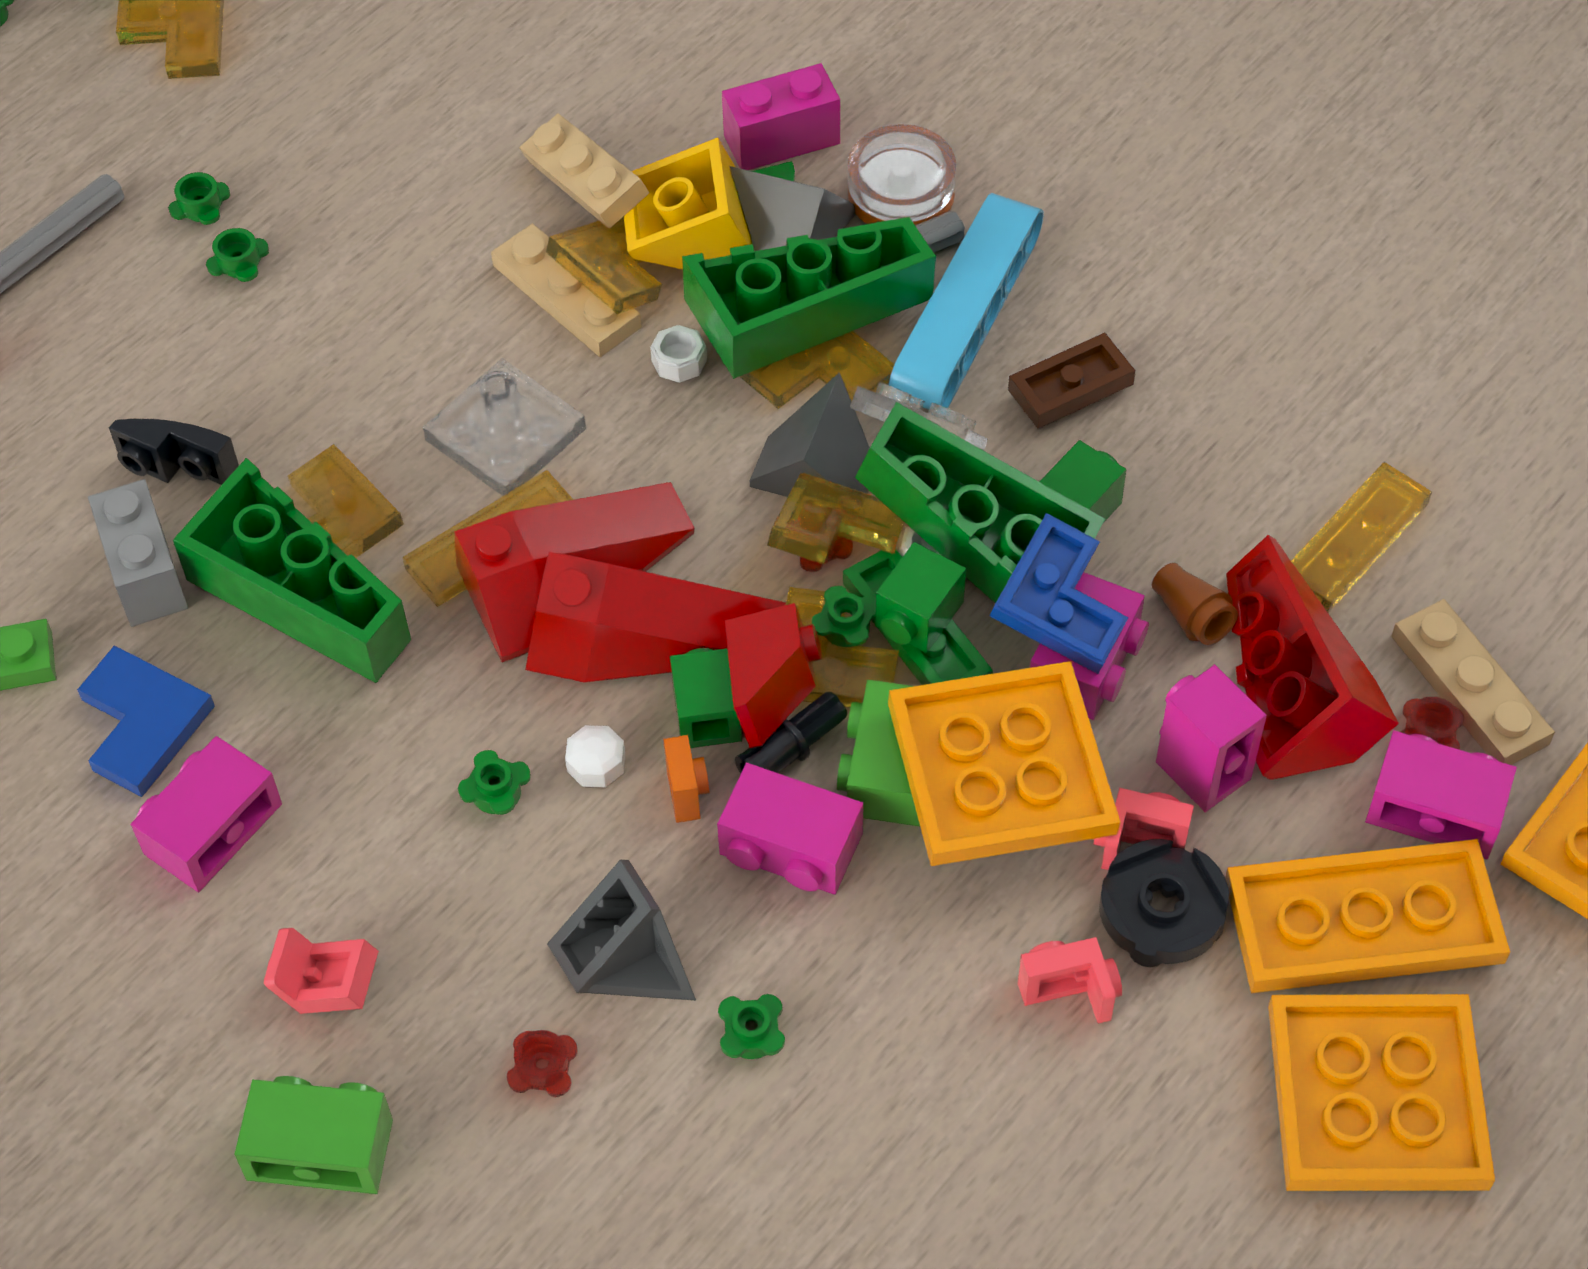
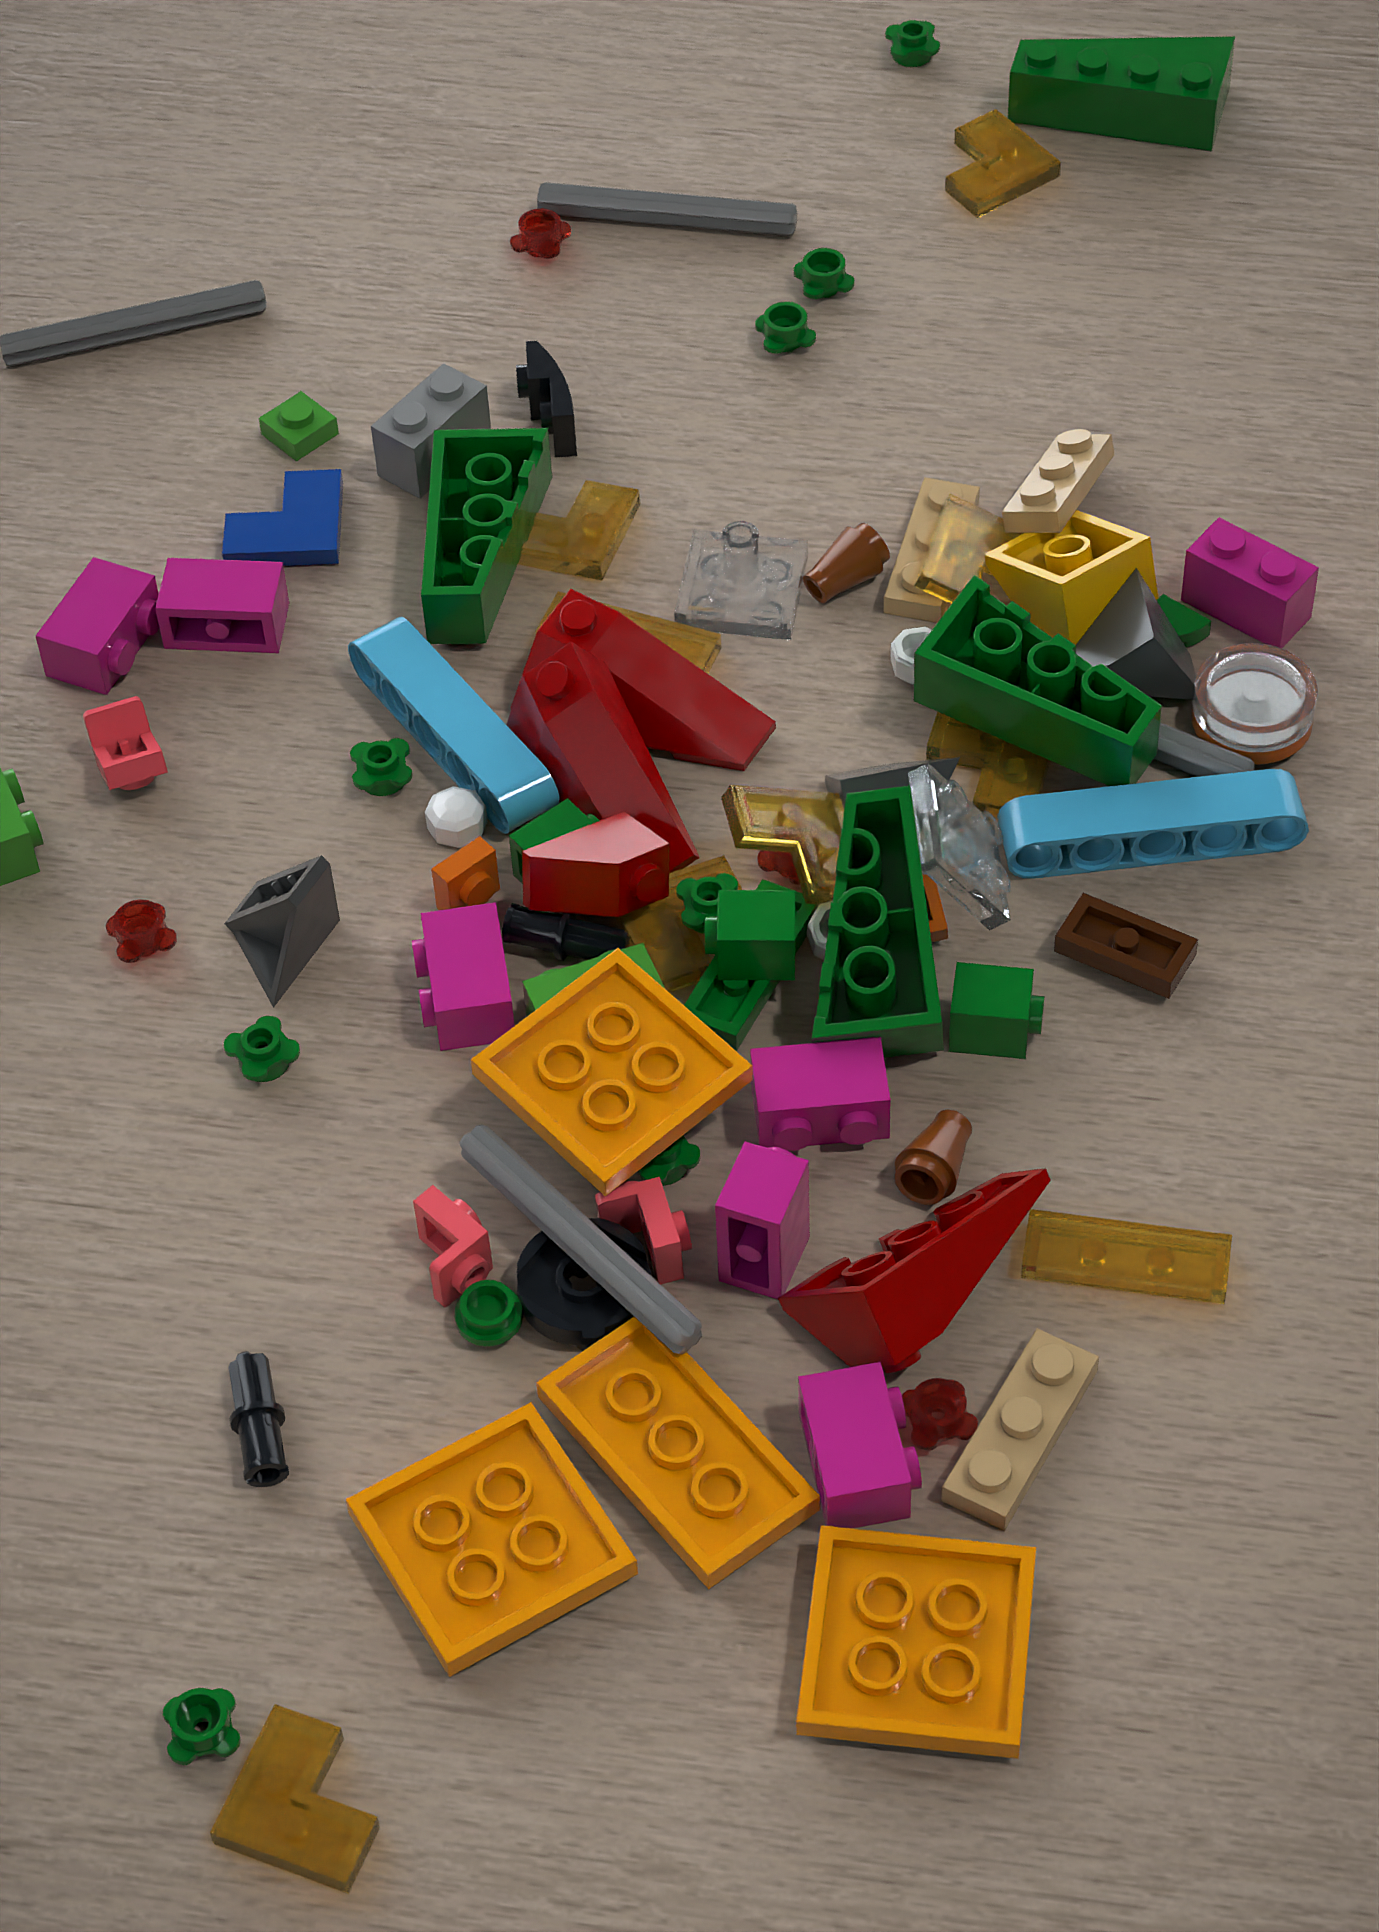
camera: 60 degrees right, 5 degrees down
(149, 924) = (99, 626): none -> dark pink brick
(491, 705) = (453, 723): none -> medium azure beam
(541, 344) = (850, 560): none -> dark orange cone
(1047, 607) = (810, 1010): blue tile -> none
(1137, 876) = (581, 1240): none -> light grey axle
(1150, 987) = (488, 1313): none -> green plate
(1152, 1214) = (257, 1420): none -> black axle

